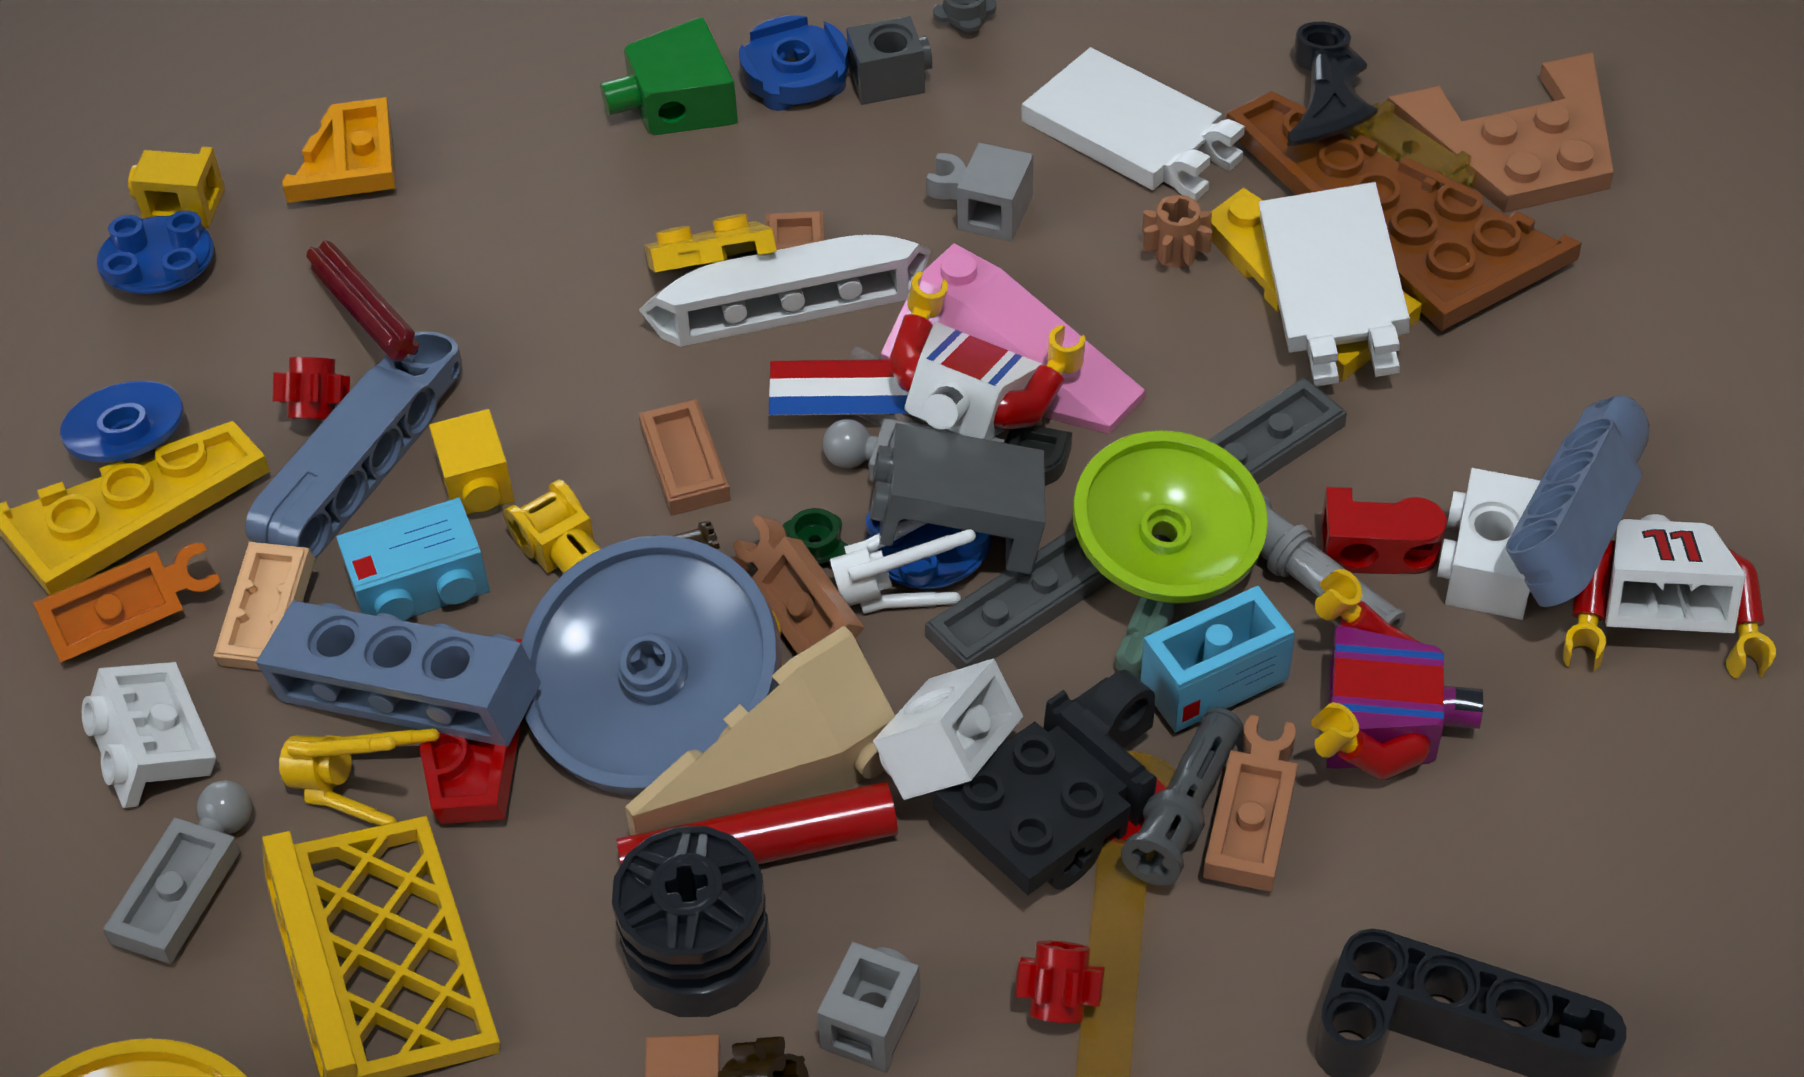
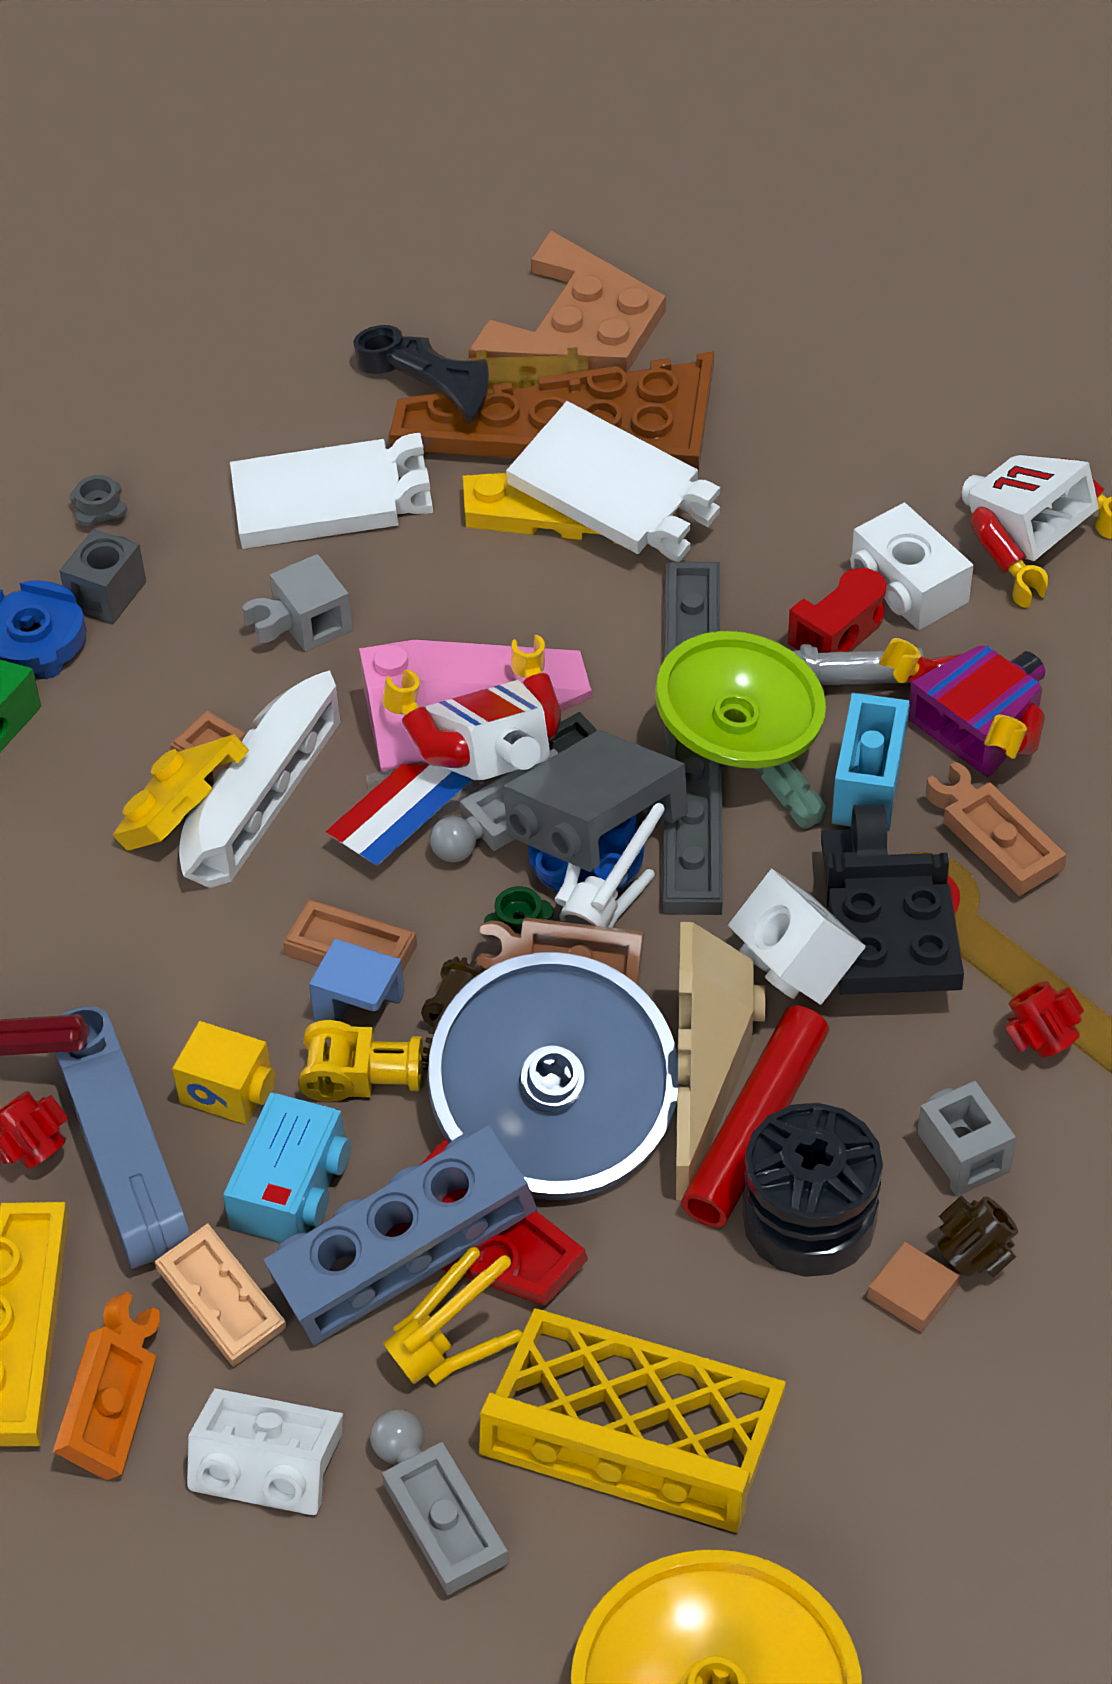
camera: 50 degrees left, 0 degrees up
(630, 474) = (356, 978): none -> medium blue panel
(1176, 814) = (971, 870): dark grey pin -> none
(1177, 231) = (465, 534): nougat gear -> none
(1580, 500) = (938, 497): sand blue piece -> none

